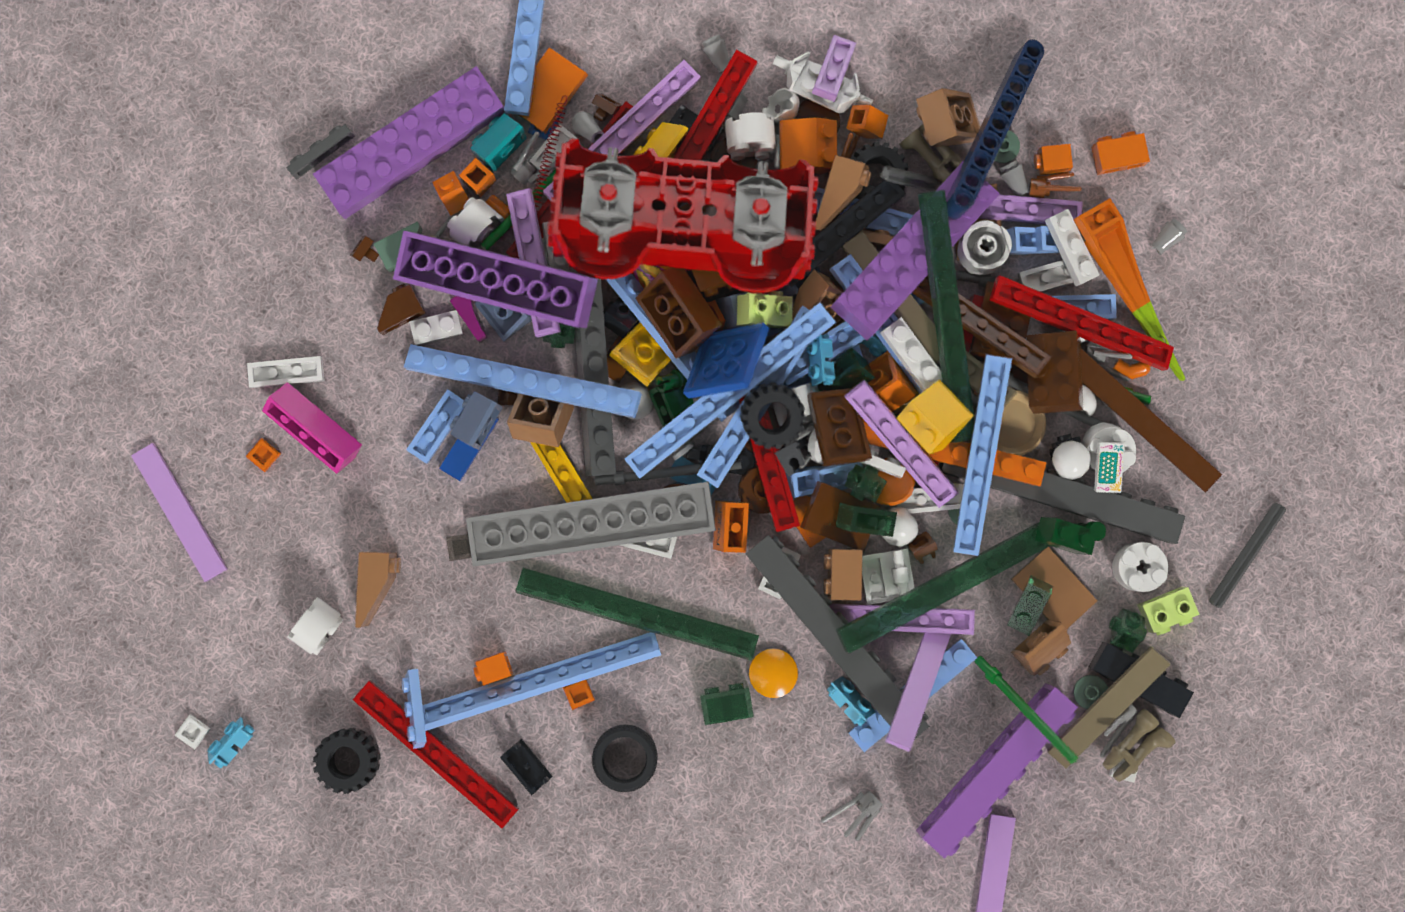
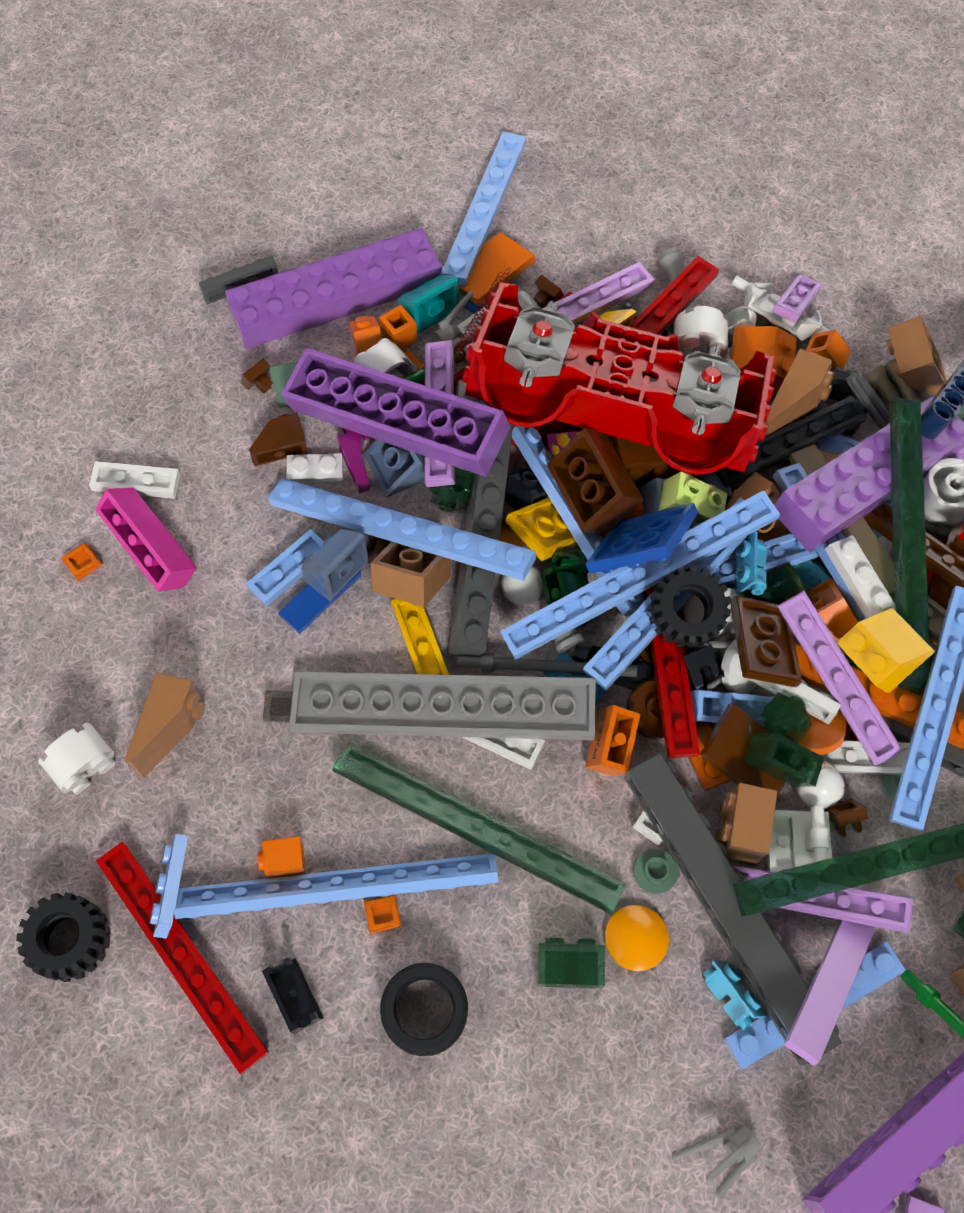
camera: 15 degrees right, 20 degrees down
(780, 620) = (655, 871): none -> sand green piece

